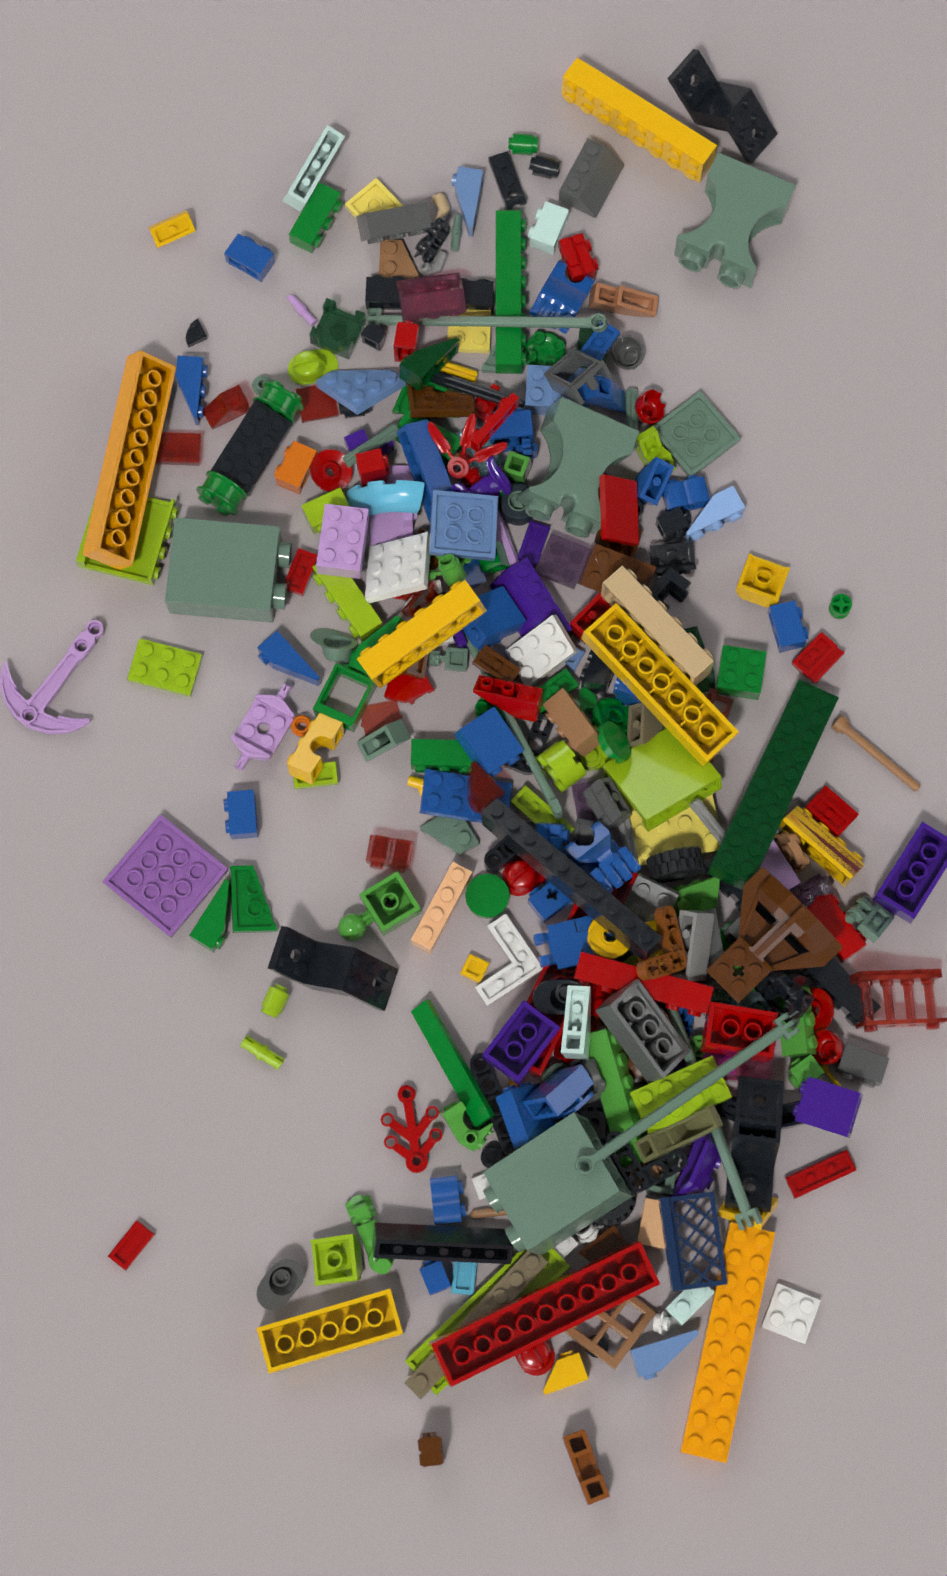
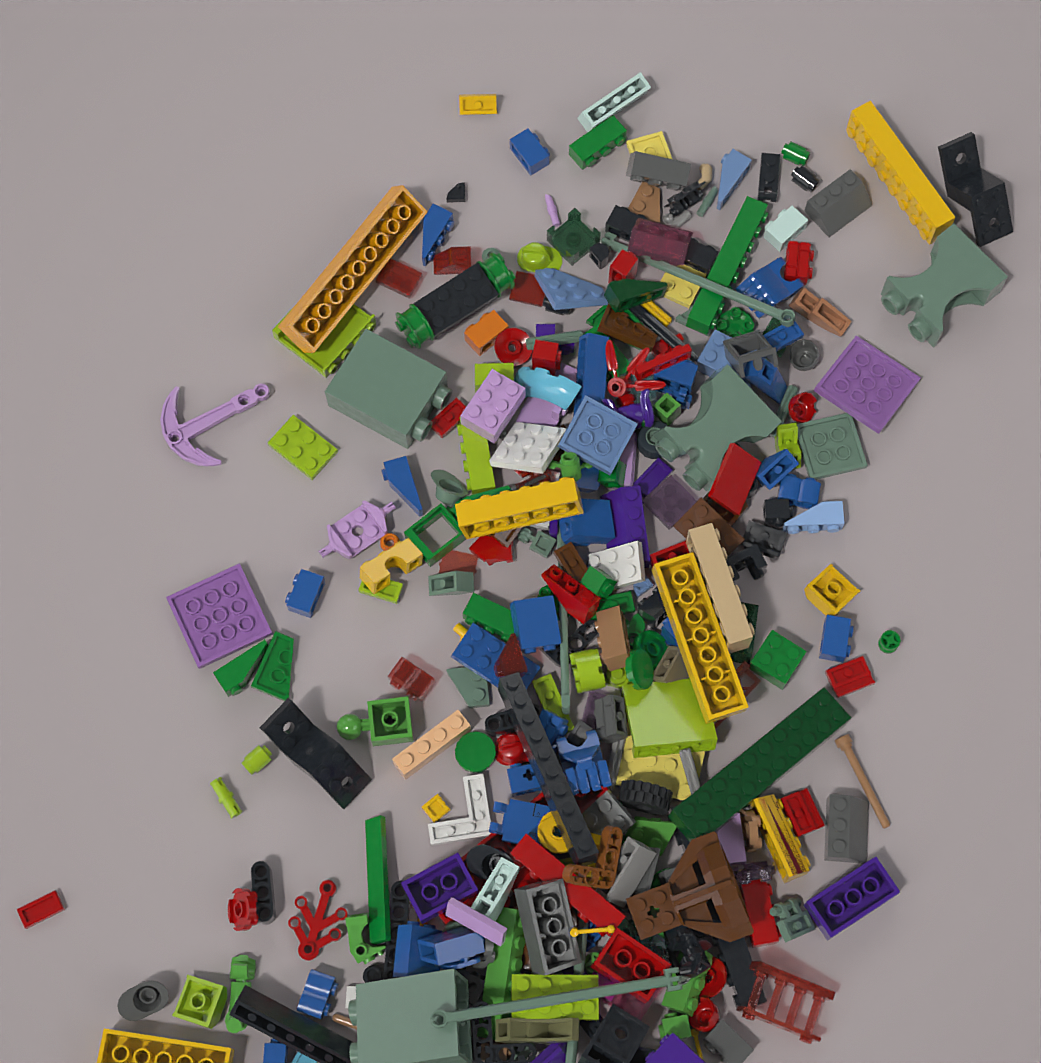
camera: 25 degrees right, 5 degrees down
(341, 1117) = (263, 882): none -> black beam
(344, 1156) = (243, 909): none -> red plate
(532, 673) = (598, 582): none -> green brick
(574, 1058) = (476, 921): none -> lavender tile
(672, 1024) = (574, 931): none -> yellow hinge
(703, 355) = (867, 384): none -> medium lavender plate
(880, 808) = (846, 829): none -> dark grey slope

